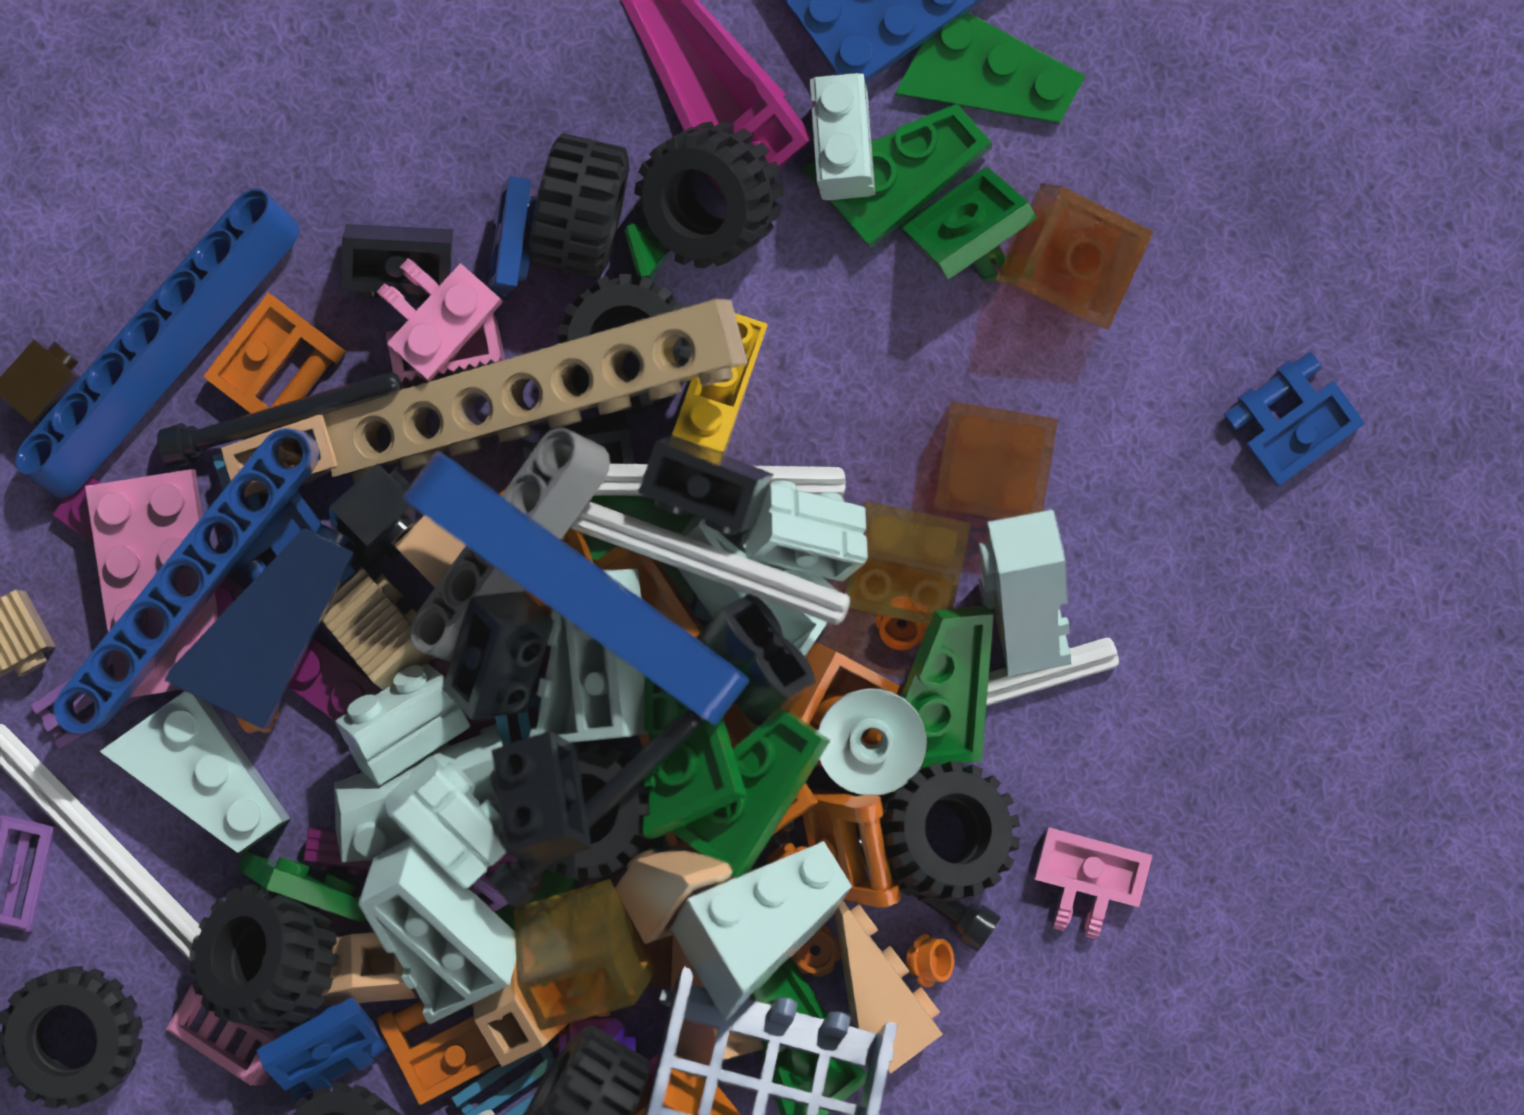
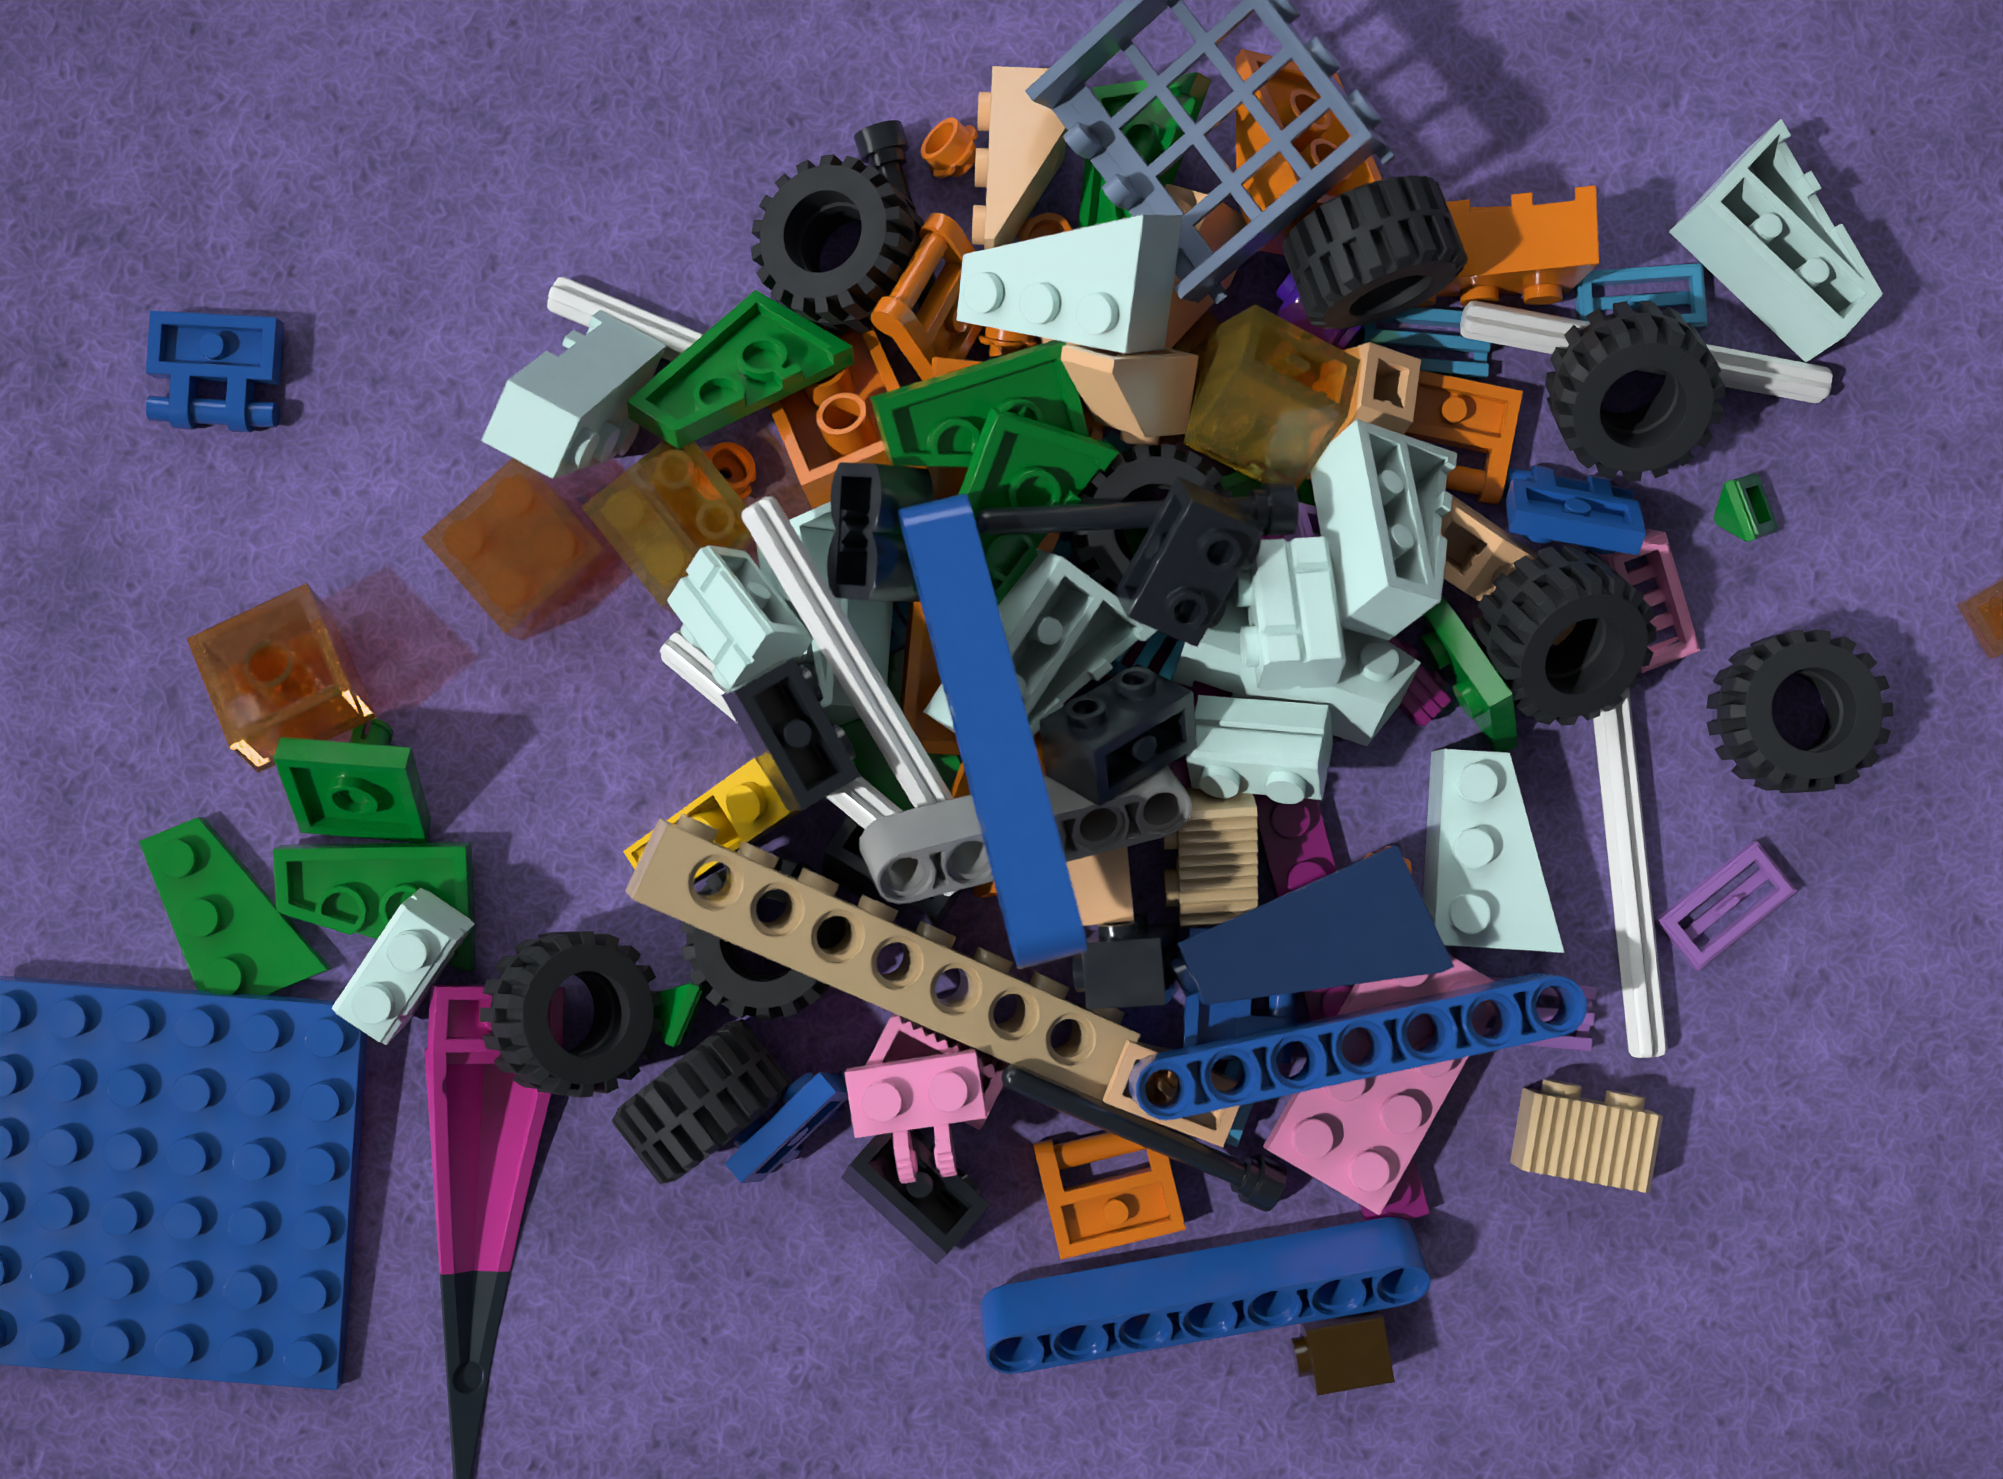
camera: 135 degrees left, 0 degrees up
(878, 766) = (841, 349): light aqua dish -> none
(1090, 868) = (734, 111): bright pink hinge -> none

